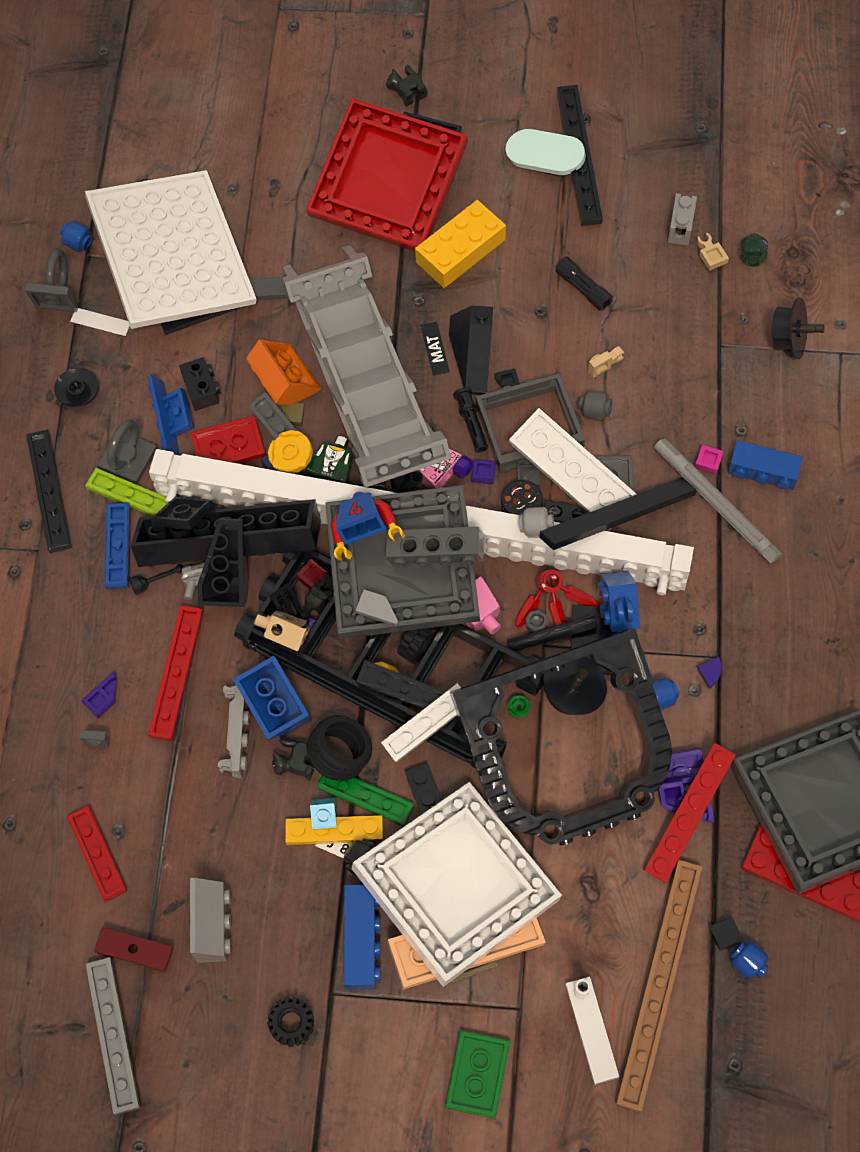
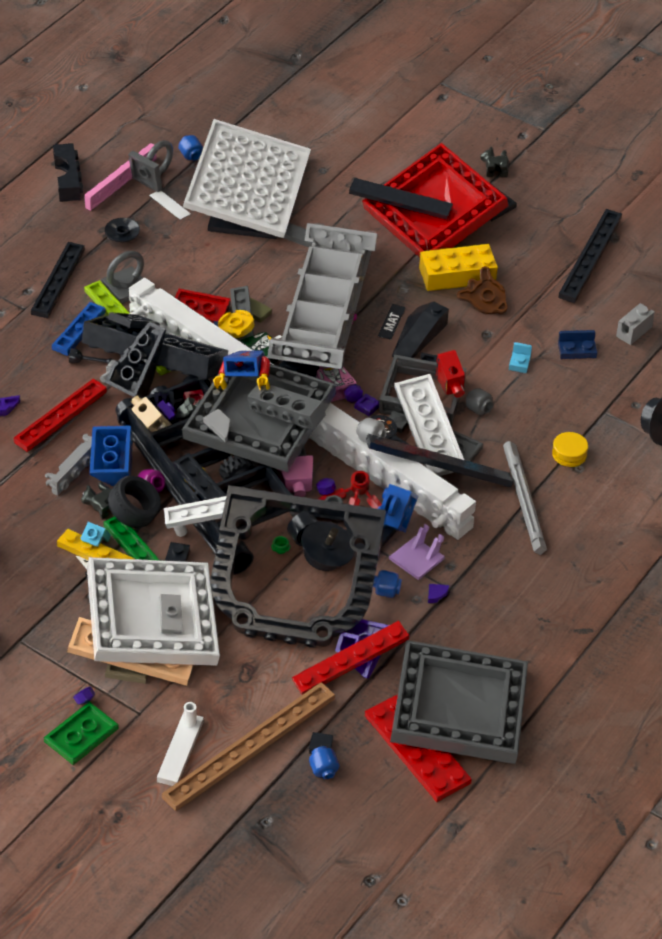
camera: 25 degrees right, 20 degrees down
(23, 324) = (112, 182): none -> bright pink plate
(171, 413) = (175, 270): blue bracket -> none
(199, 383) = (207, 265): black brick -> none
(282, 372) = (269, 282): orange slope -> none
(297, 611) = (167, 410): none -> dark purple plate
(333, 704) = (155, 477): none -> magenta head
(350, 189) = (401, 198): none -> black tile
(360, 939) = (61, 615): blue brick -> none
(451, 1027) = (84, 696): none -> dark purple tile
(468, 410) = (384, 364): black pin -> none
(478, 874) = (170, 613): none -> light grey plate
(511, 264) = (485, 294): none -> reddish brown tile
(514, 603) = (326, 486): none -> dark purple tile
(545, 151) = (565, 242): light aqua tile -> none
(559, 396) = (453, 380): none -> red torso
(595, 293) = (527, 321): black axle -> none
(597, 325) = (520, 357): none -> medium azure bracket
(603, 362) = (505, 380): tan plate -> none
(641, 277) = (577, 344): none -> dark blue bracket
(664, 638) = (416, 556): none -> lavender plate
(709, 459) = (538, 470): dark pink plate -> none
(712, 254) = (642, 355): tan plate -> none
(721, 414) = (570, 449): none -> yellow head
(765, 465) = (577, 492): blue brick -> none

